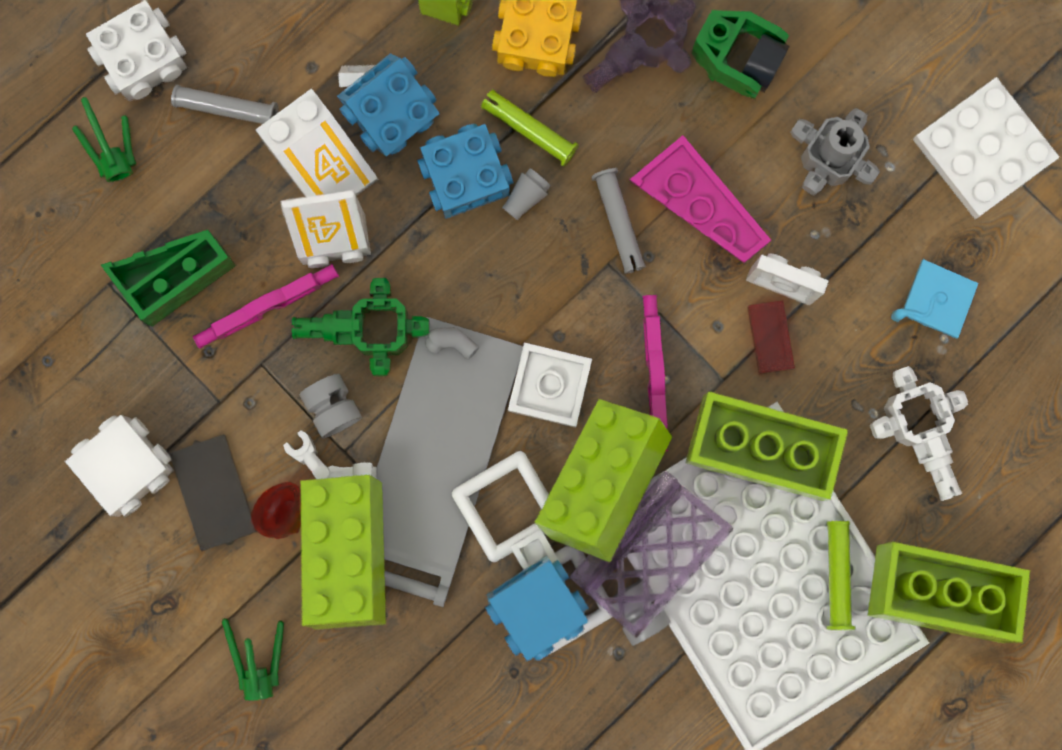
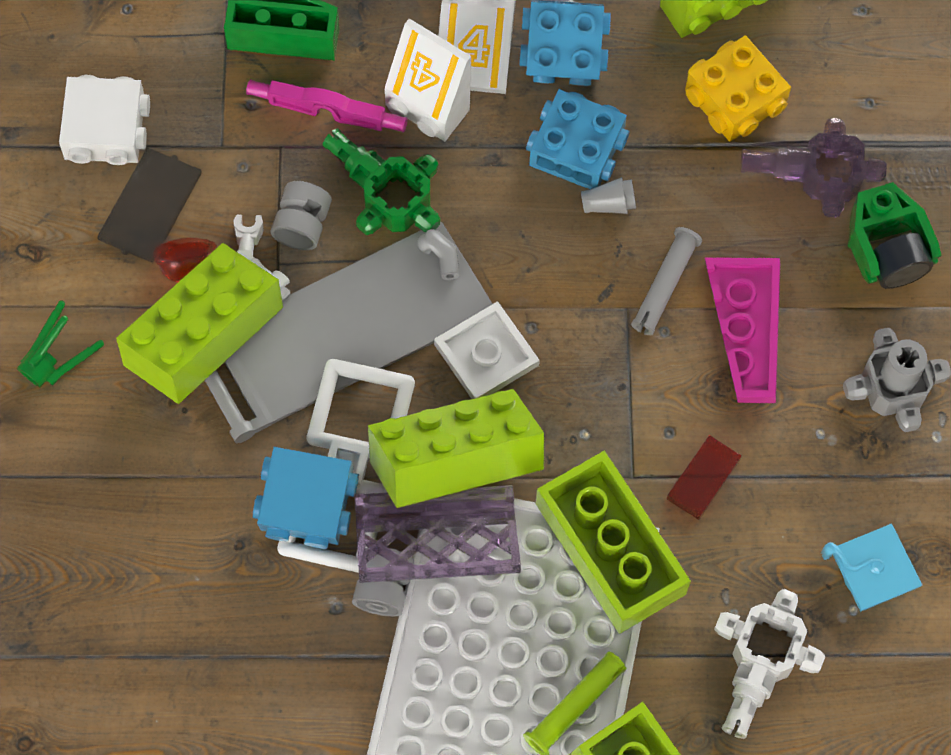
camera: 45 degrees right, 15 degrees down
(530, 127) = (662, 155): lime pin -> none
(654, 359) = (585, 408): dark pink piece -> none
(798, 284) = (758, 438): white plate -> none

